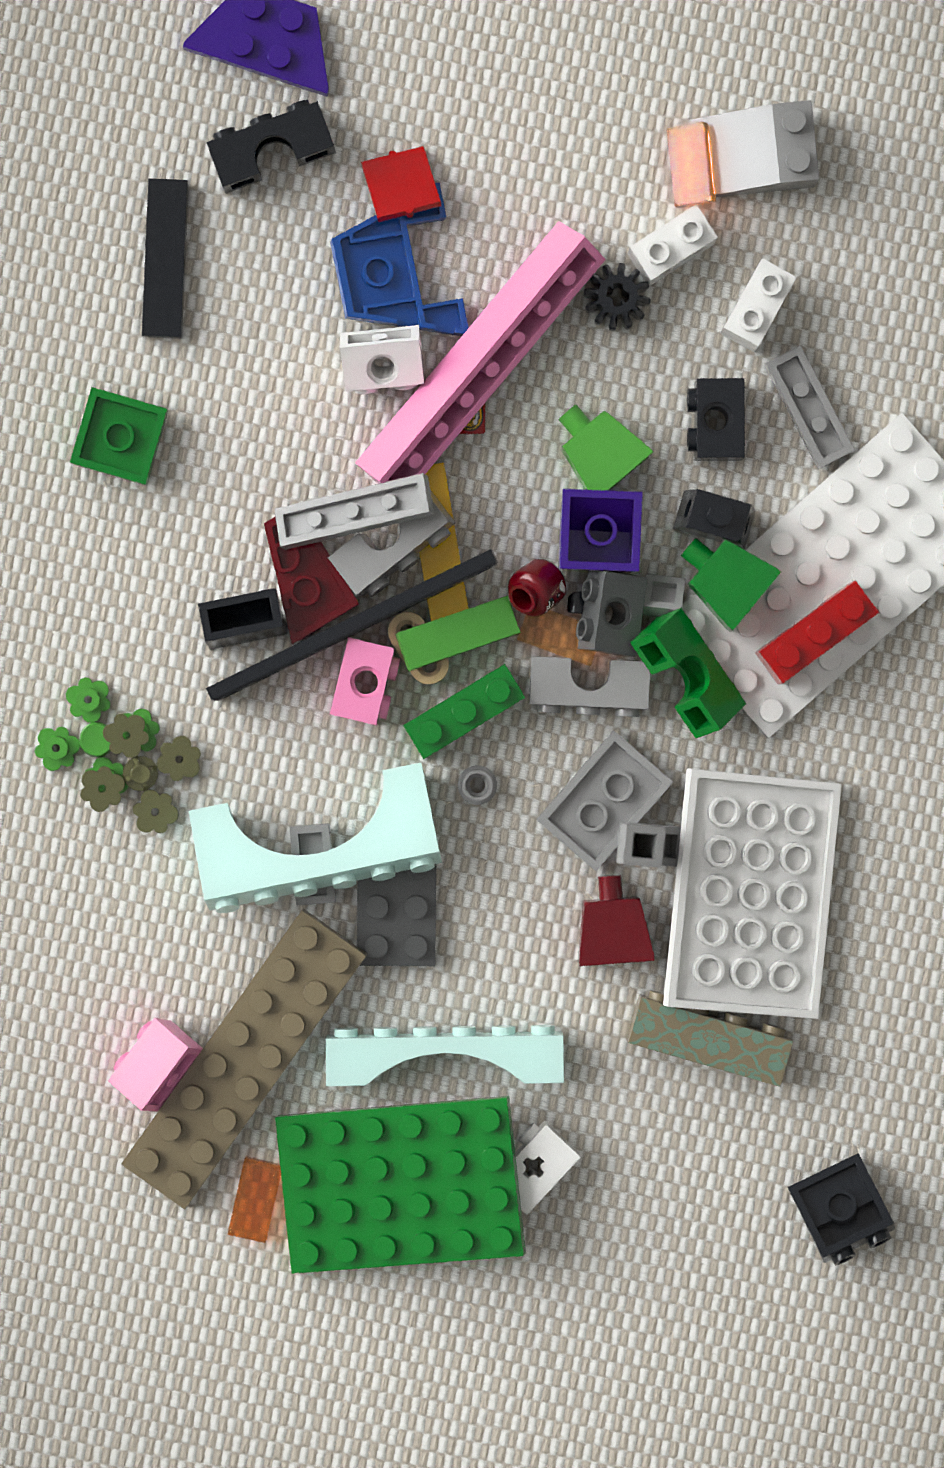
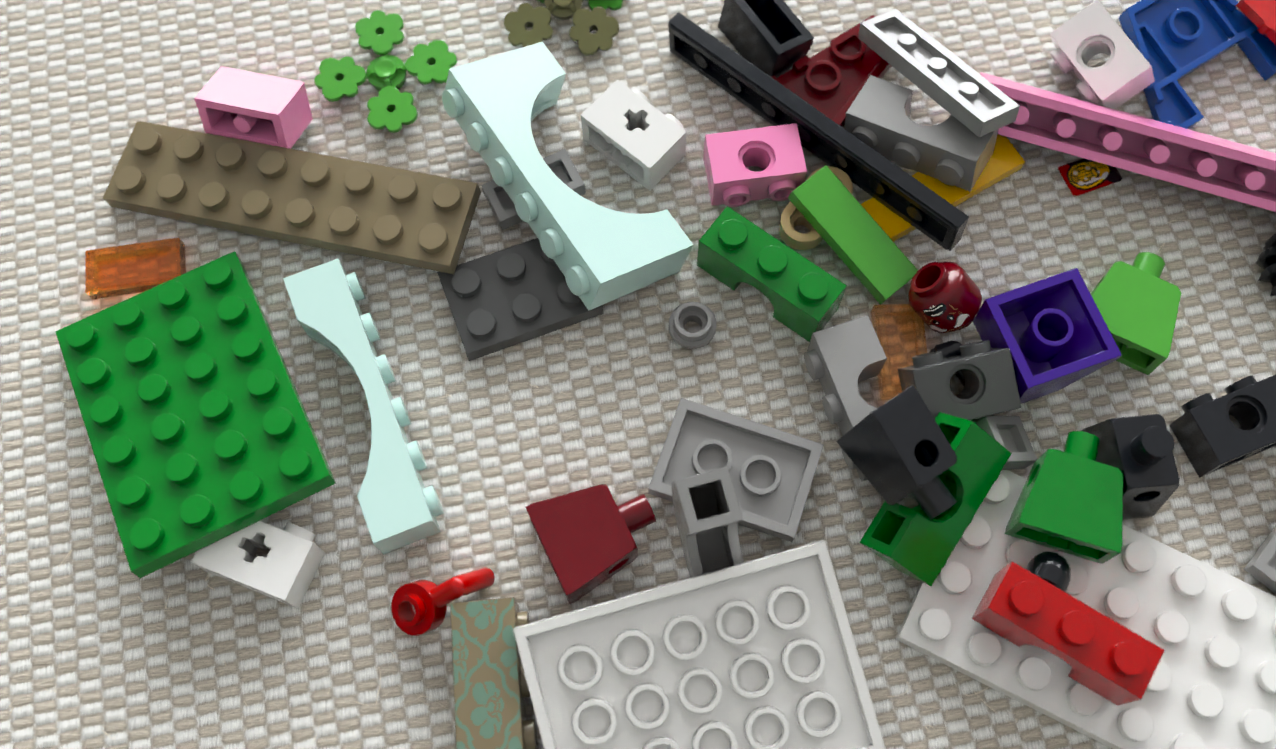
camera: 65 degrees right, 20 degrees down
(151, 945) = (385, 72): none -> bright green plant
(282, 784) = (634, 134): none -> white brick
(615, 1063) = (432, 600): none -> red plate
(640, 692) = (903, 452): none -> black torso
(770, 619) = (1051, 568): none -> black hinge

